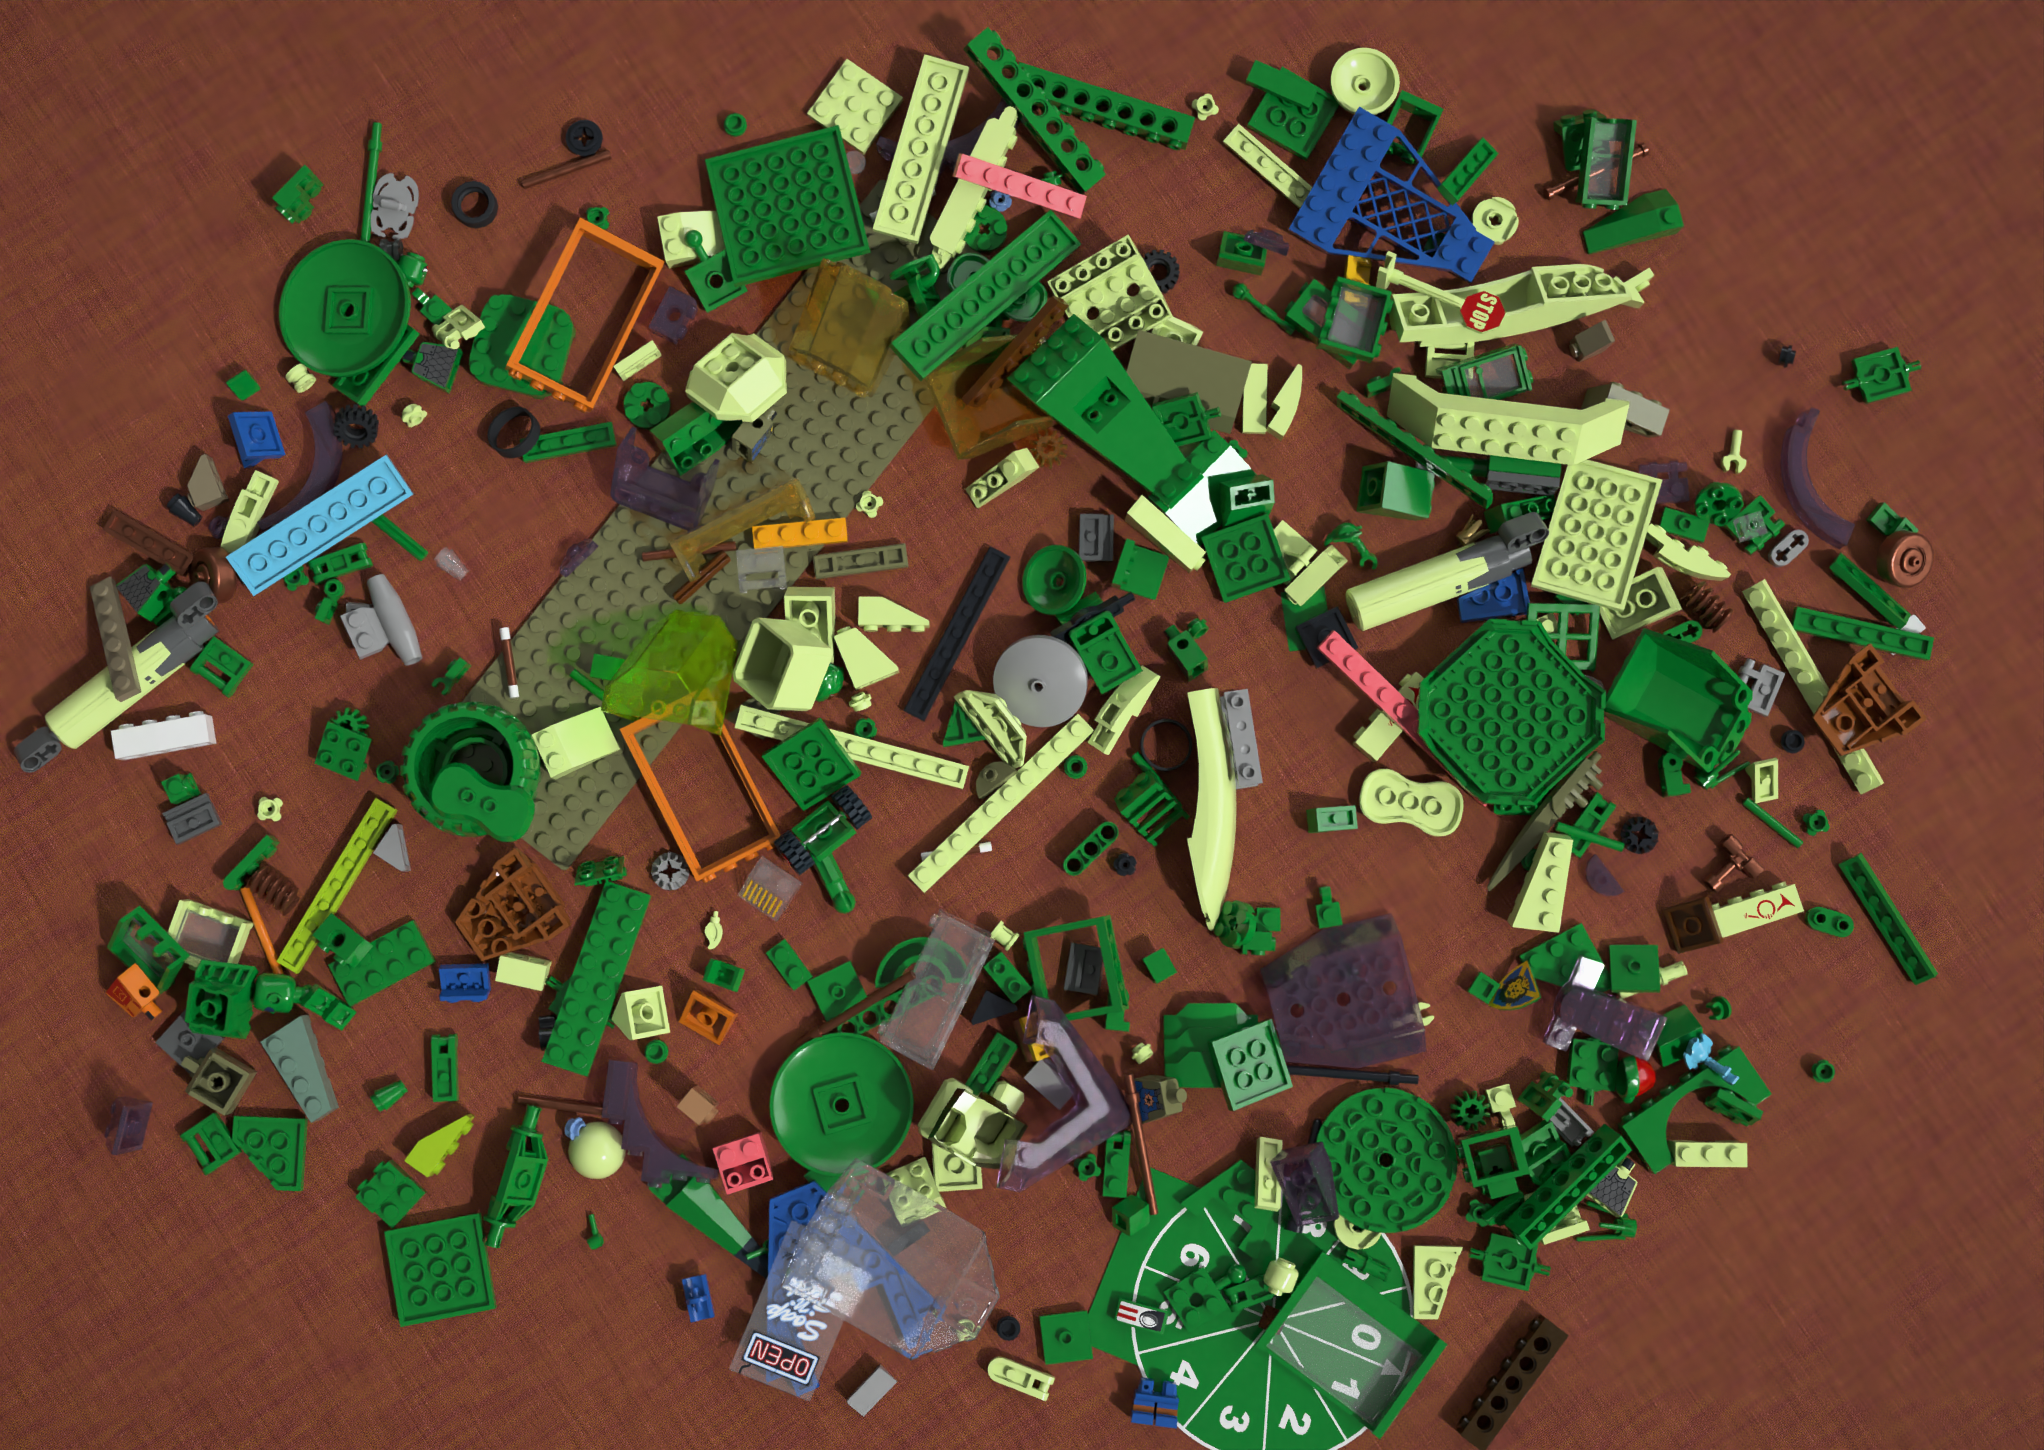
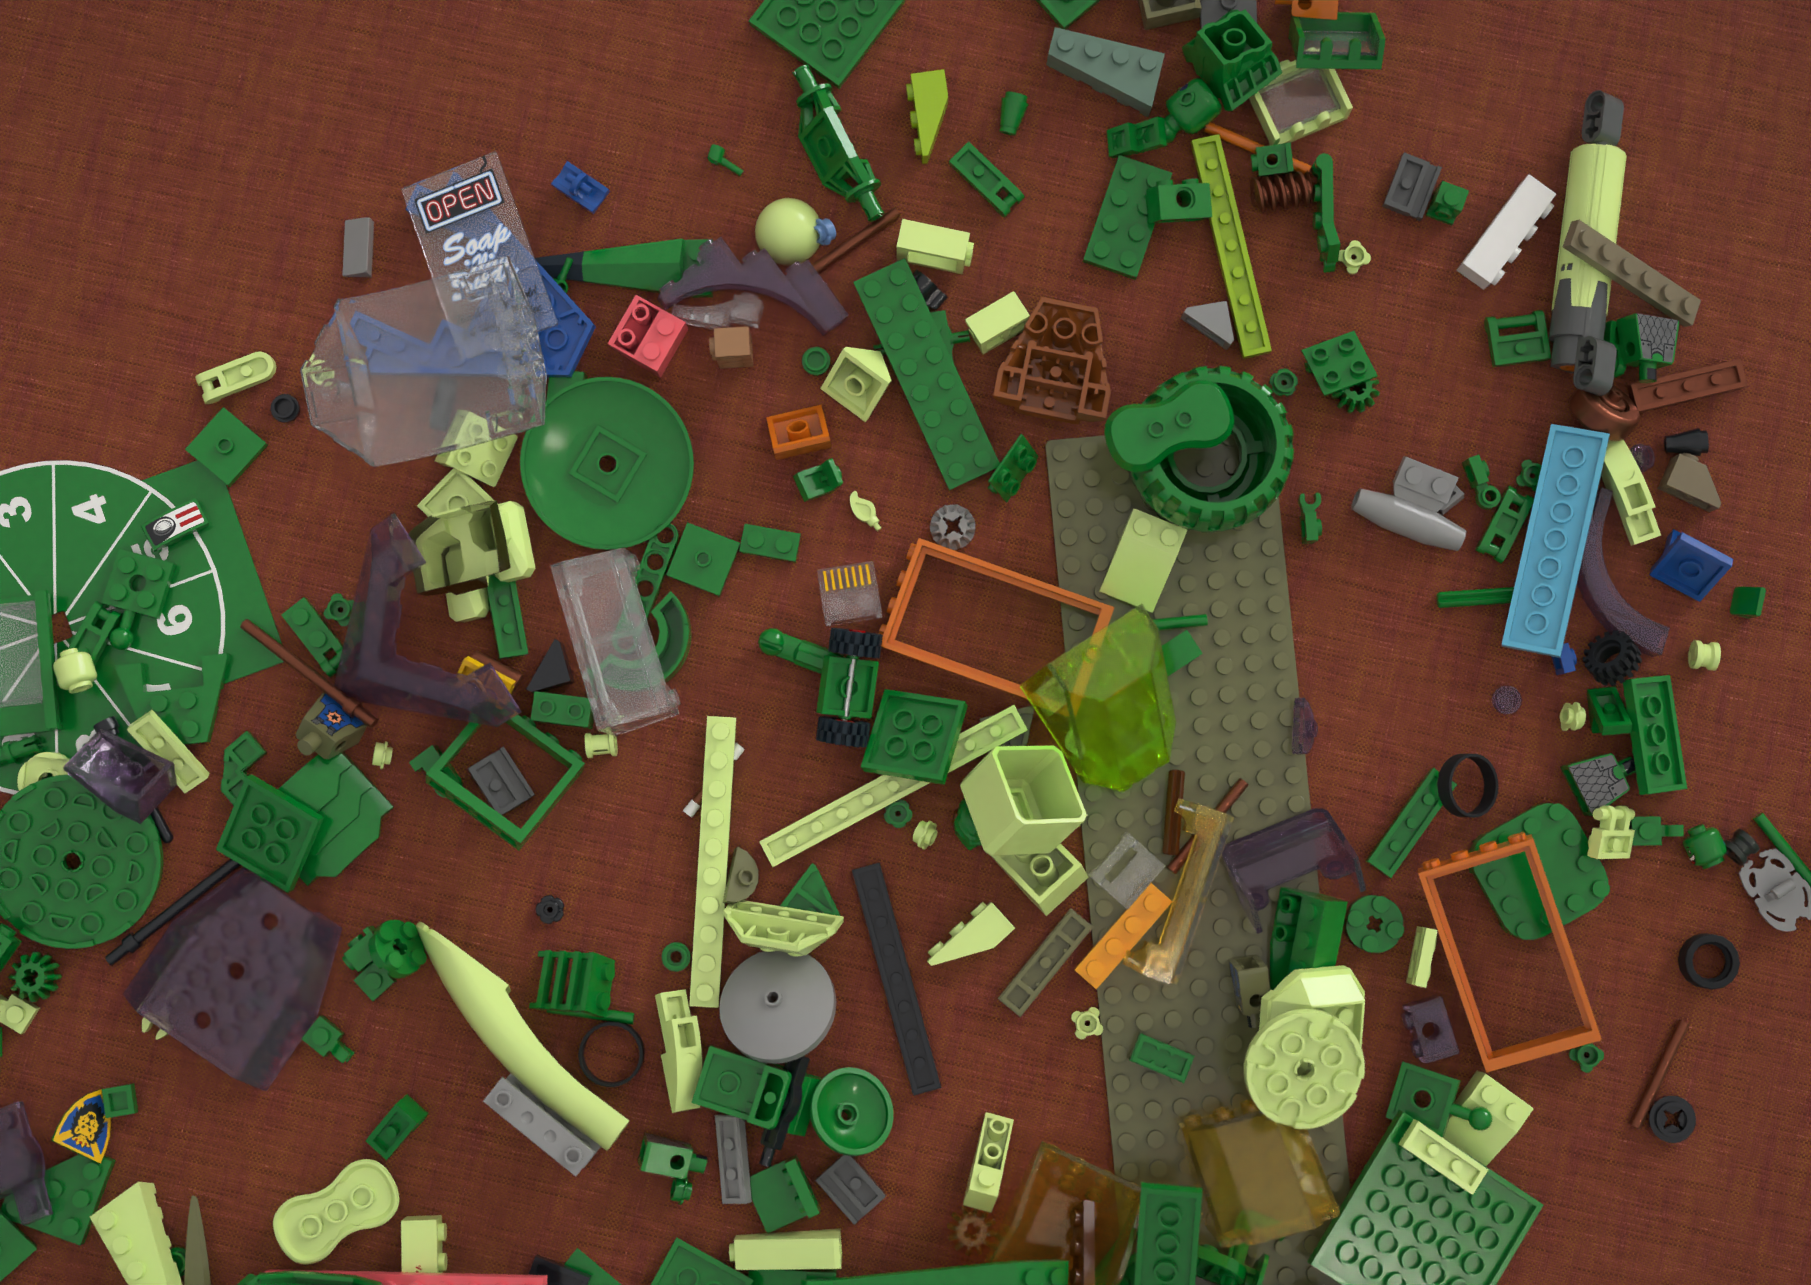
camera: 140 degrees right, 0 degrees up
(255, 904) = (1284, 160): none -> green brick
(279, 827) = (1328, 246): none -> green plate
(317, 301) = (1763, 747): green dish -> none
(385, 448) = (1566, 662): none -> blue plate
(390, 398) = (1607, 712): none -> green slope
(390, 1193) = (932, 34): green plate -> none
(442, 460) = (1506, 700): none -> plate
(450, 563) = (1408, 615): clear cone -> none
(464, 982) = (1039, 265): blue bracket -> none
(509, 662) = (1270, 576): copper bar -> none
(517, 1053) = (934, 246): none -> yellowish green window
(670, 1124) = (741, 310): none -> clear slope
(735, 124) = (1547, 1264): green plate -> none
(735, 237) = (1443, 1156): none -> yellowish green plate
(774, 380) = (1325, 1090): none -> yellowish green plate
(818, 1030) = (688, 508): copper bar -> none
(844, 443) = (1161, 1057): none -> green plate
(863, 659) = (959, 875): yellowish green slope -> none
(1048, 1082) = (440, 651): light grey hinge -> none
(1096, 838) = (586, 907): green beam -> none
(1130, 1215) = (262, 603): green panel -> none
(1150, 617) = (733, 1159): none -> light grey tile
(1159, 965) = (434, 846): green panel -> none
(1166, 1404) = (92, 458): blue hips -> none
(1232, 1131) = (237, 760): none -> green tile

